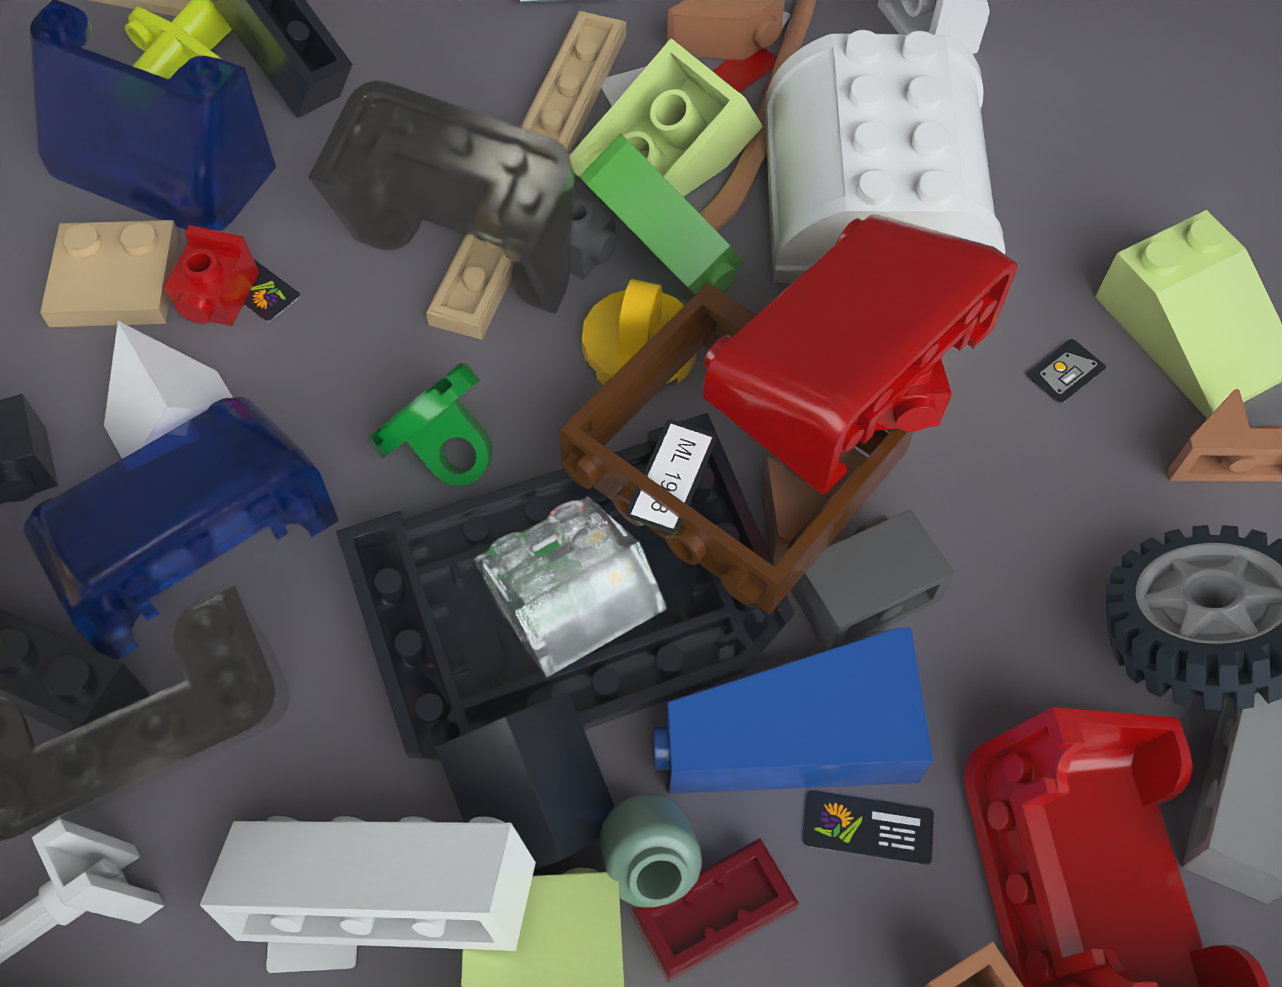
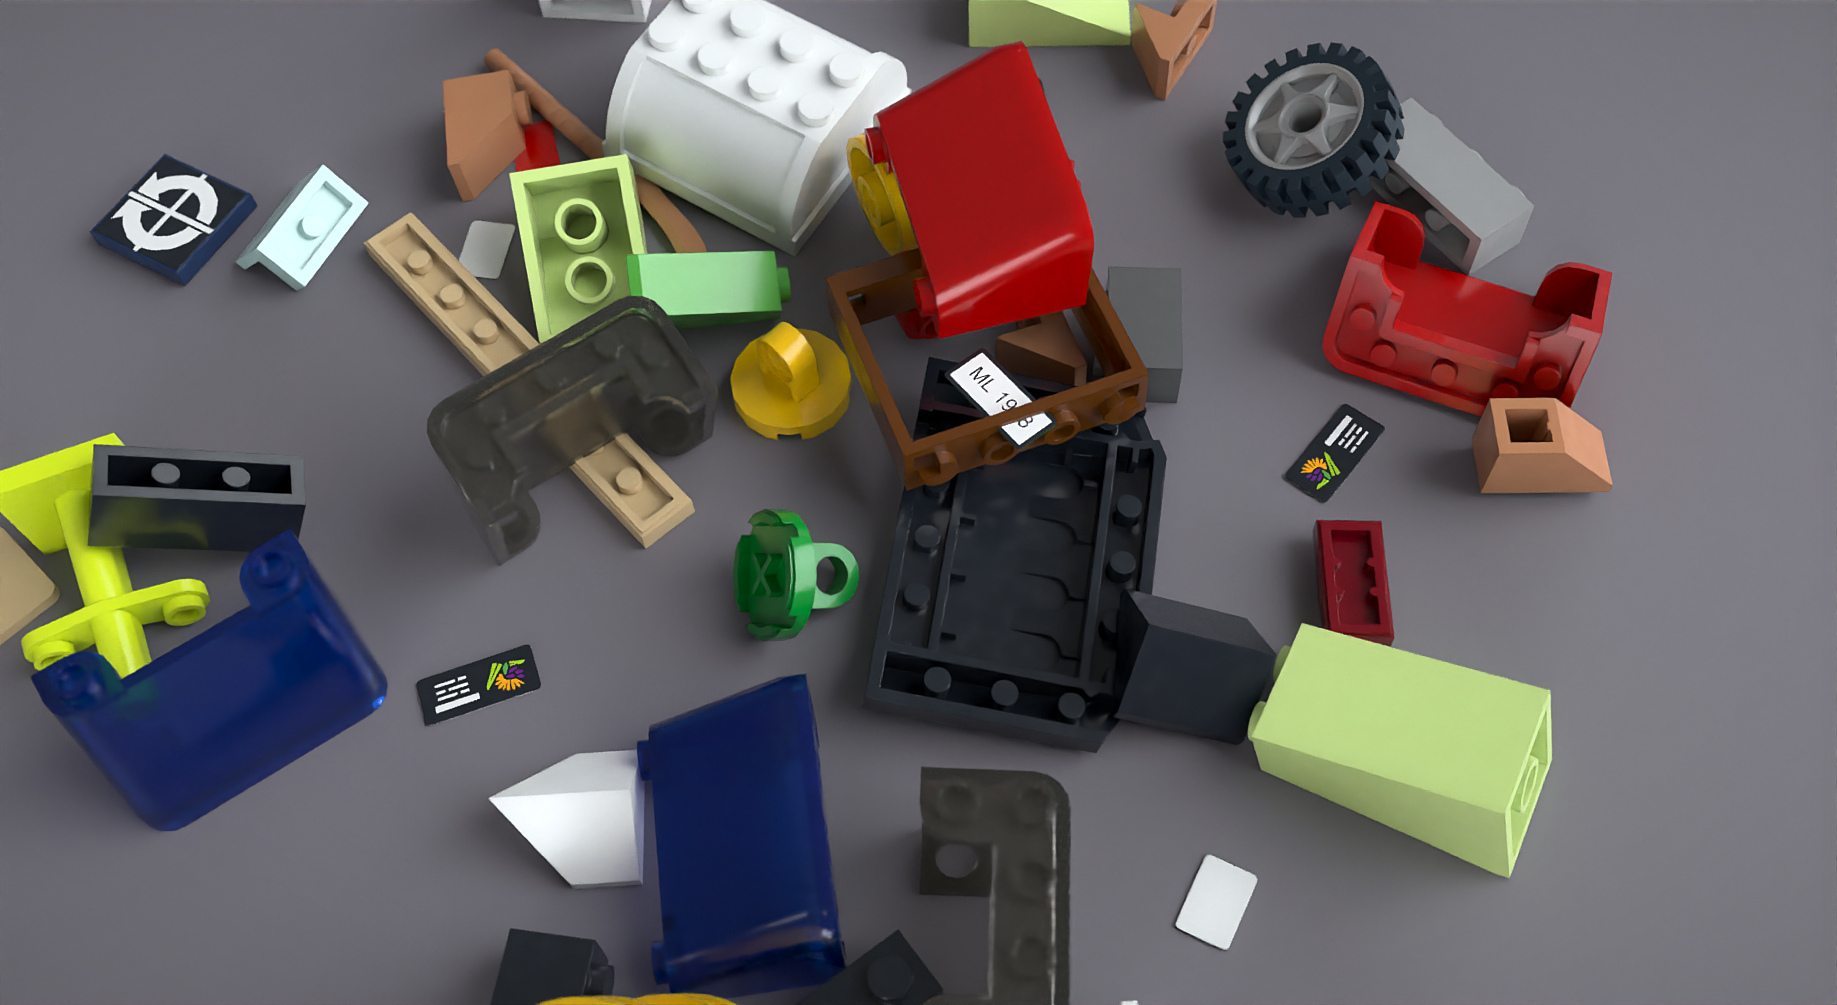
camera: 55 degrees left, 0 degrees up
(110, 273) = (374, 810): tan plate -> none
(211, 276) = (452, 687): red brick -> none
(372, 883) = (1221, 803): white brick -> none
(570, 583) = (1024, 539): clear slope -> none
(650, 850) = (1290, 596): sand green head -> none
(804, 724) = (1241, 436): blue slope -> none

